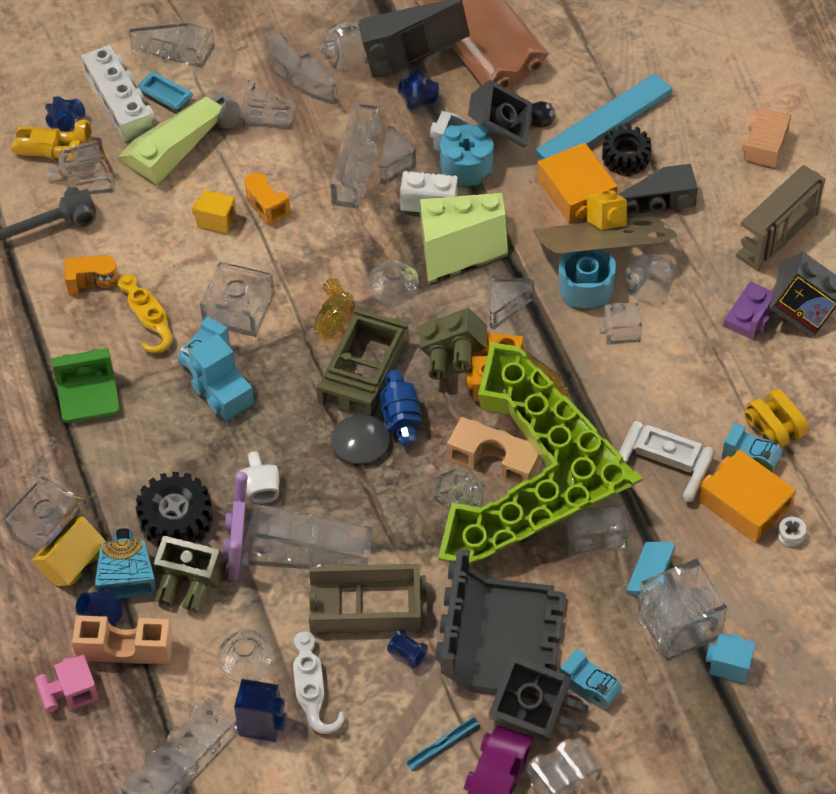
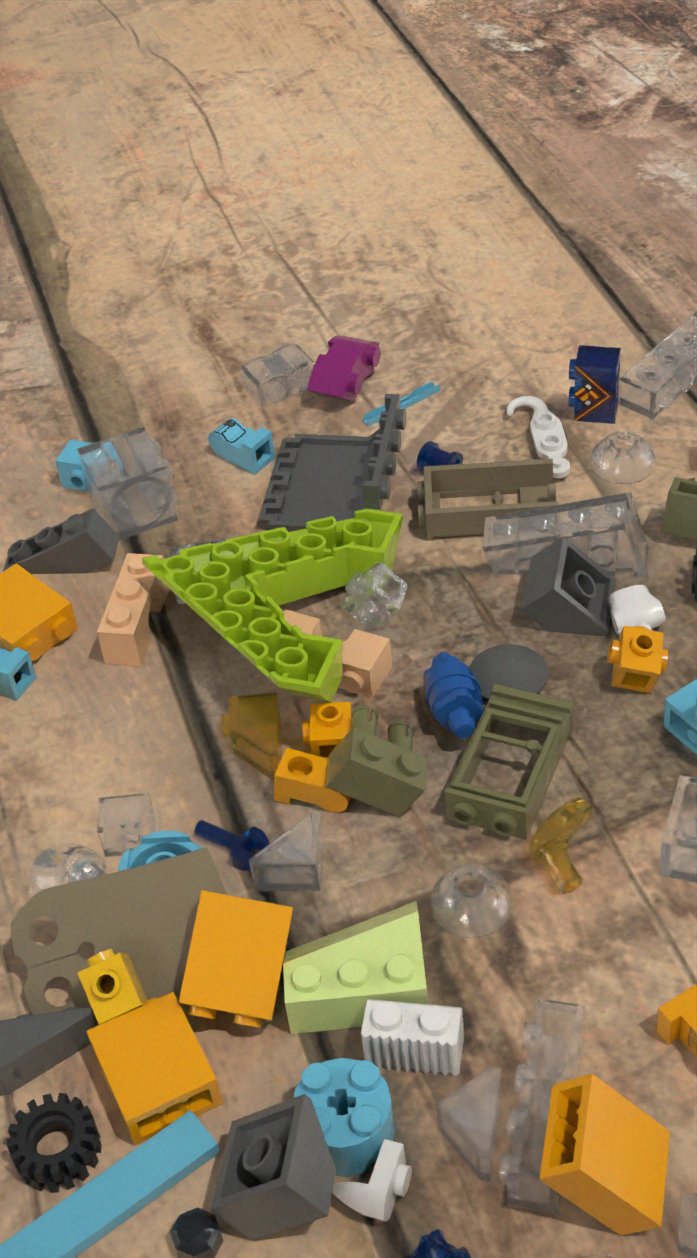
camera: 175 degrees left, 10 degrees down
(234, 523) = (656, 539): lavender plate -> none
(265, 430) = (637, 658): none -> light orange brick
(313, 491) = (568, 591): none -> dark grey slope
(327, 119) = (605, 1155): none -> light orange brick
(533, 218) = (235, 958): none -> light orange brick
(546, 319) = (238, 844): none -> clear blue bar
(550, 691) = (304, 406): dark grey hinge -> none
(652, 495) = (125, 625): none -> light nougat arch
(653, 560) = (154, 537): medium azure slope -> none
(670, 450) = (104, 668): white plate -> none
(731, 563) = (68, 548): none -> dark grey slope

